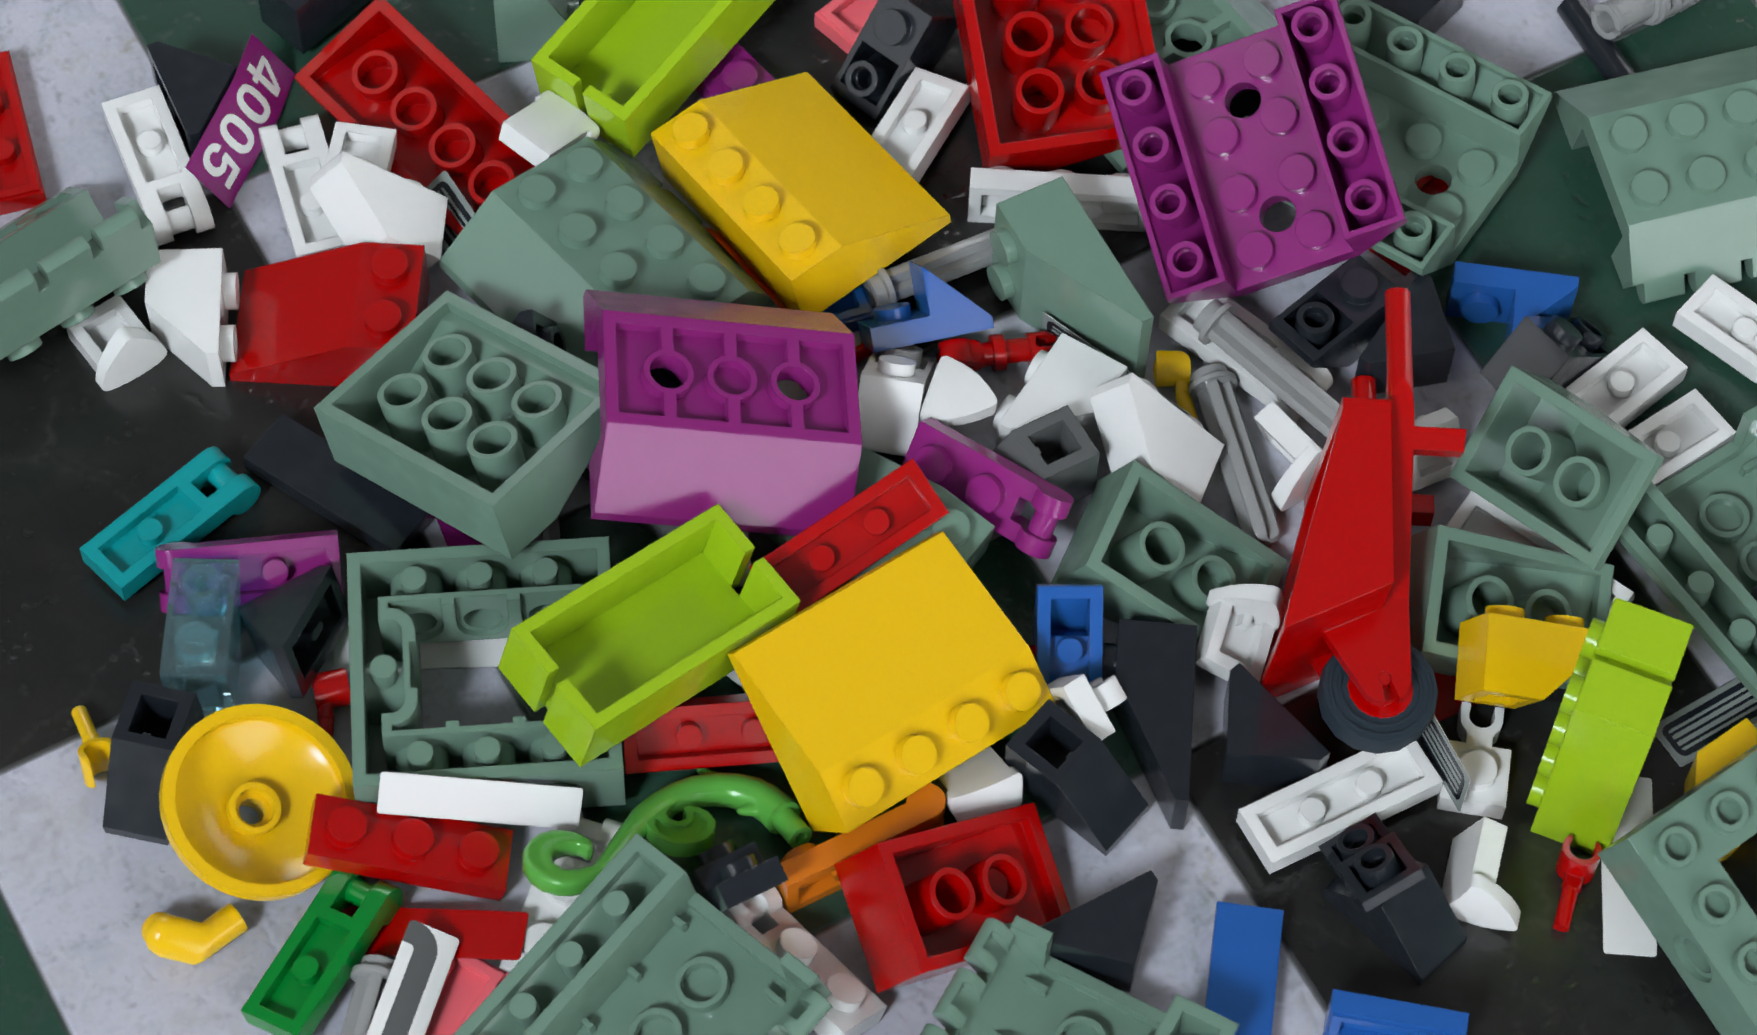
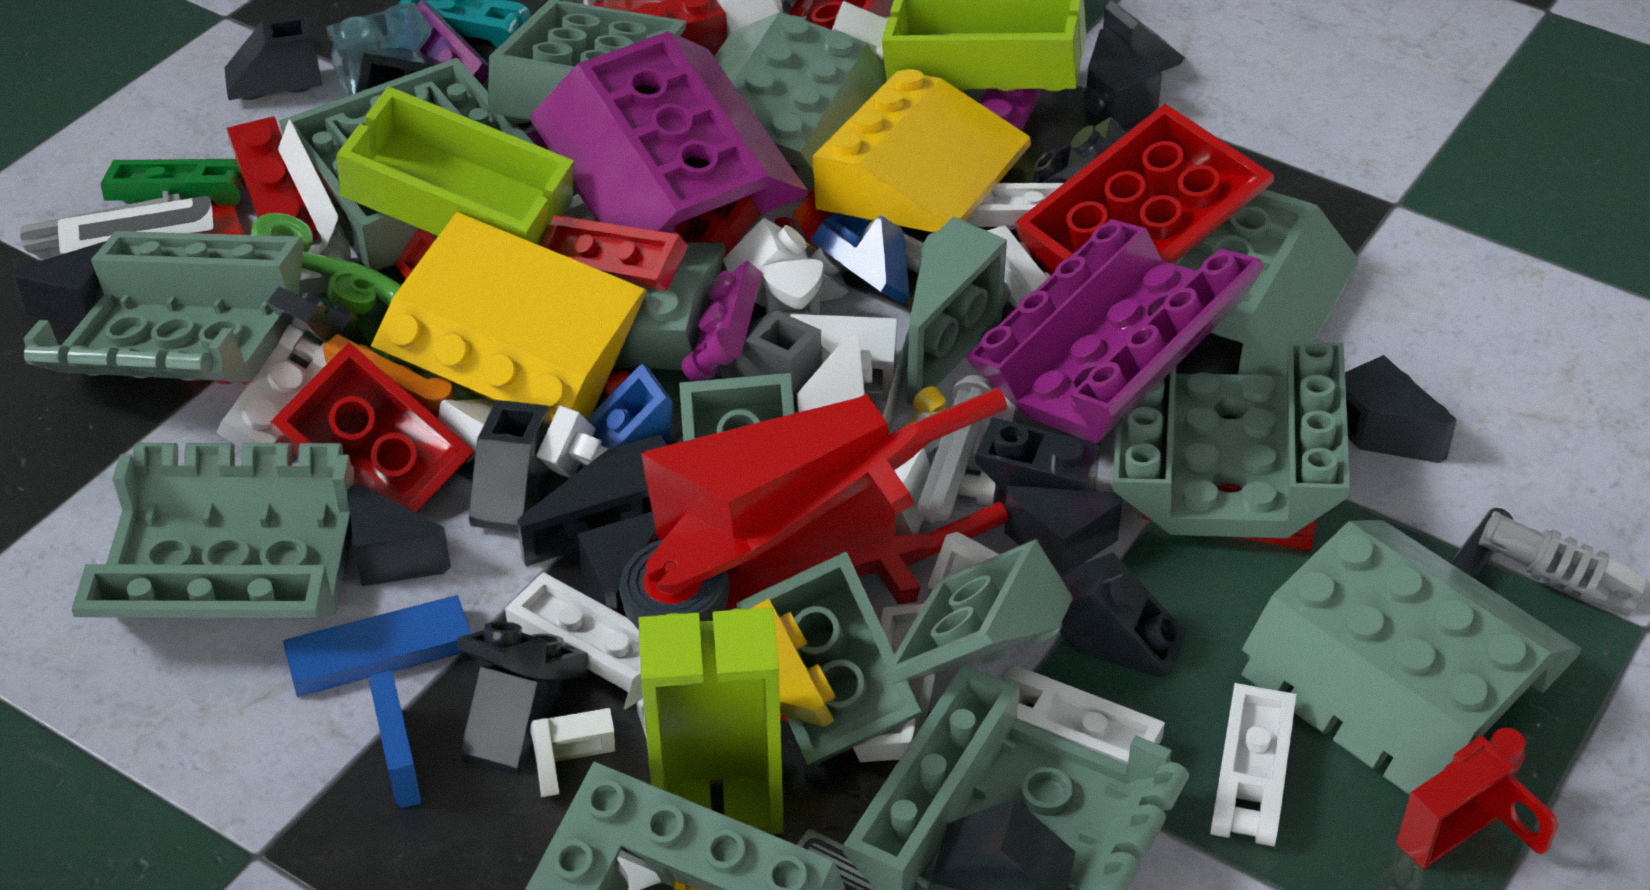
camera: 65 degrees right, 15 degrees down
(191, 940) = (163, 134): yellow arm -> none
(256, 760) = (252, 84): yellow dish -> none
(996, 351) = (860, 303): red piece -> none
(1507, 294) = (1160, 569): blue slope -> none
(1630, 378) = (1116, 672): white plate -> none

